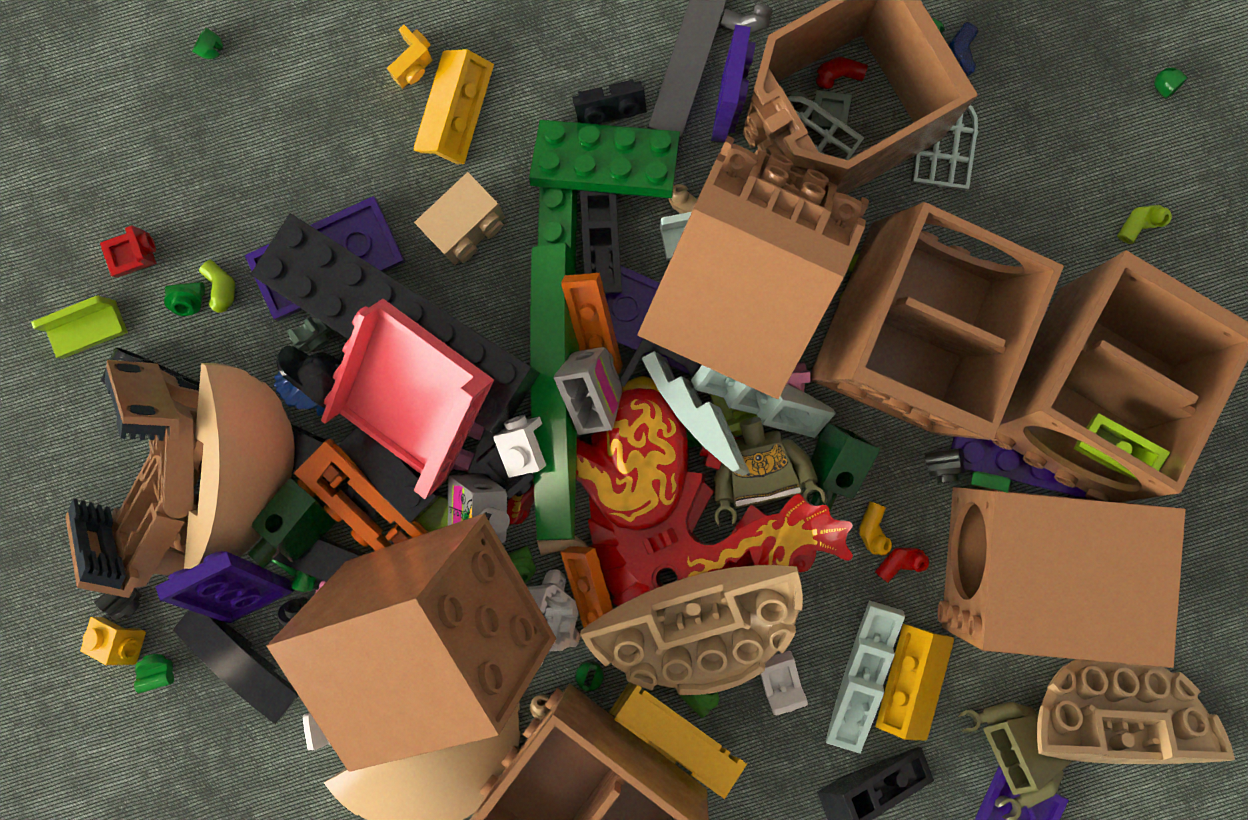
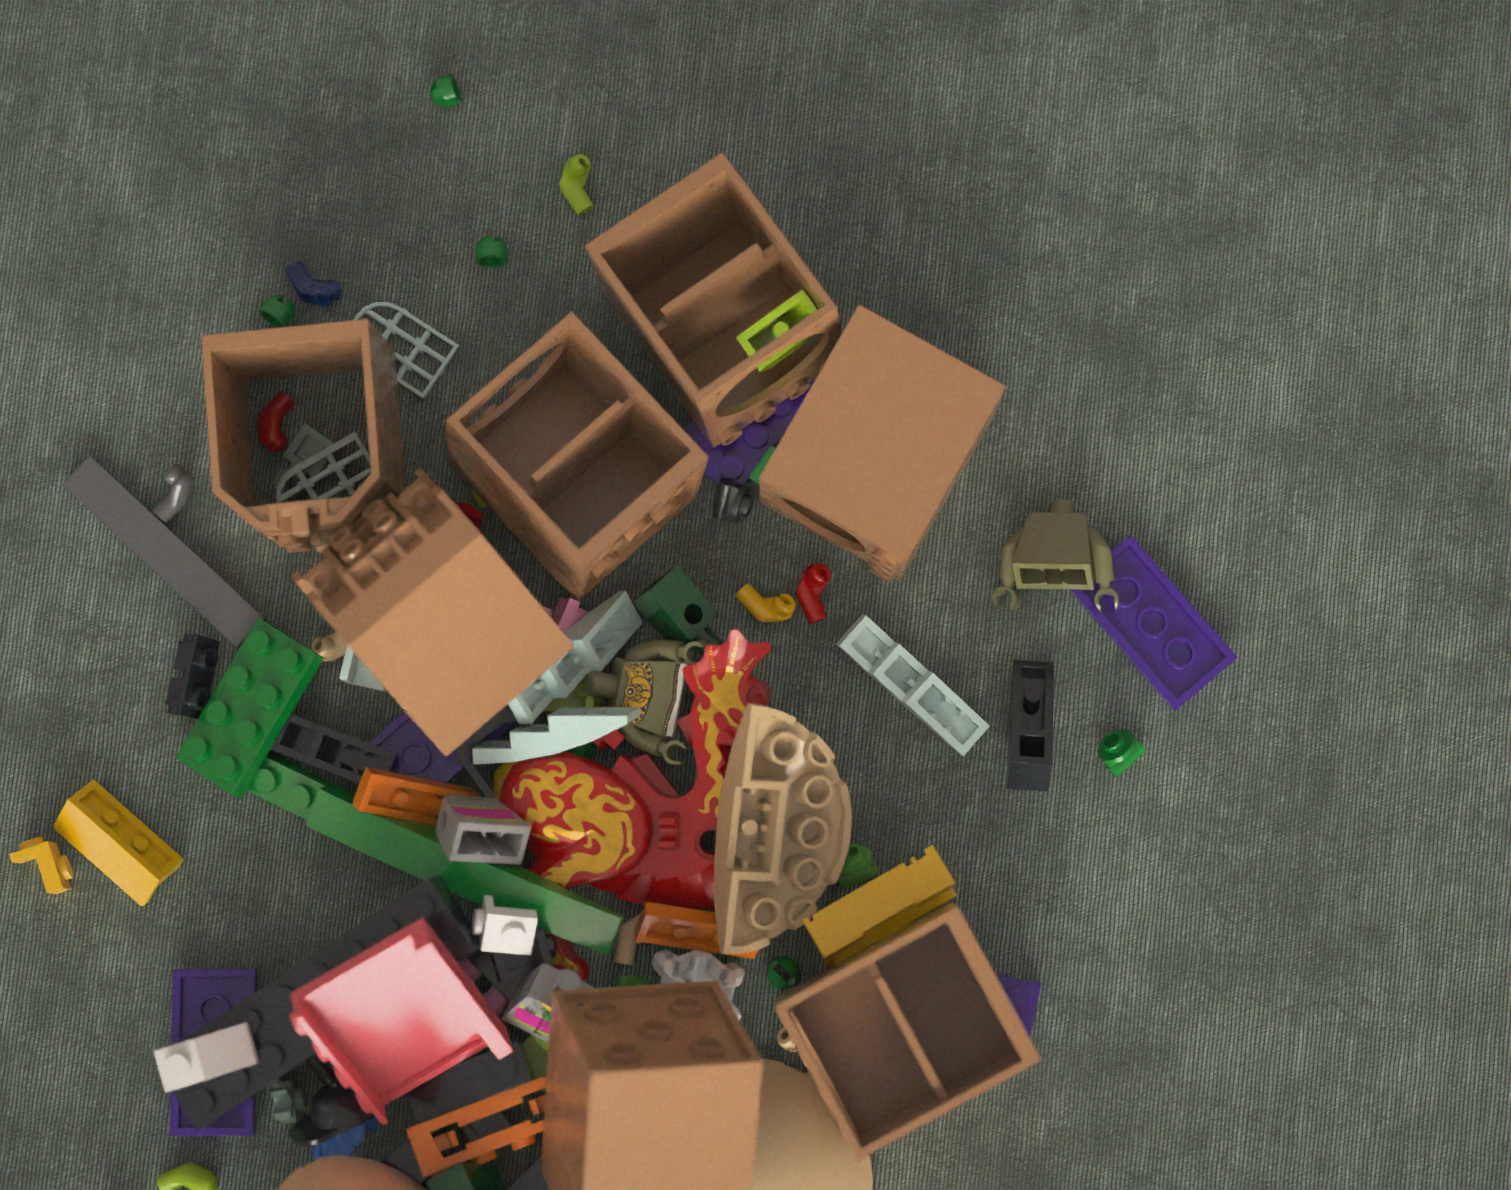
camera: 60 degrees left, 5 degrees down
(304, 253) = (206, 1057): none -> white slope
(461, 219) = (243, 886): tan brick -> none
(733, 84) = (240, 544): dark purple plate -> none
(783, 684) = (878, 773): white bracket -> none
(914, 683) = (942, 635): yellow panel -> none
(1056, 179) = (491, 252): none -> green hinge
(1127, 717) = (1066, 435): tan brick -> none

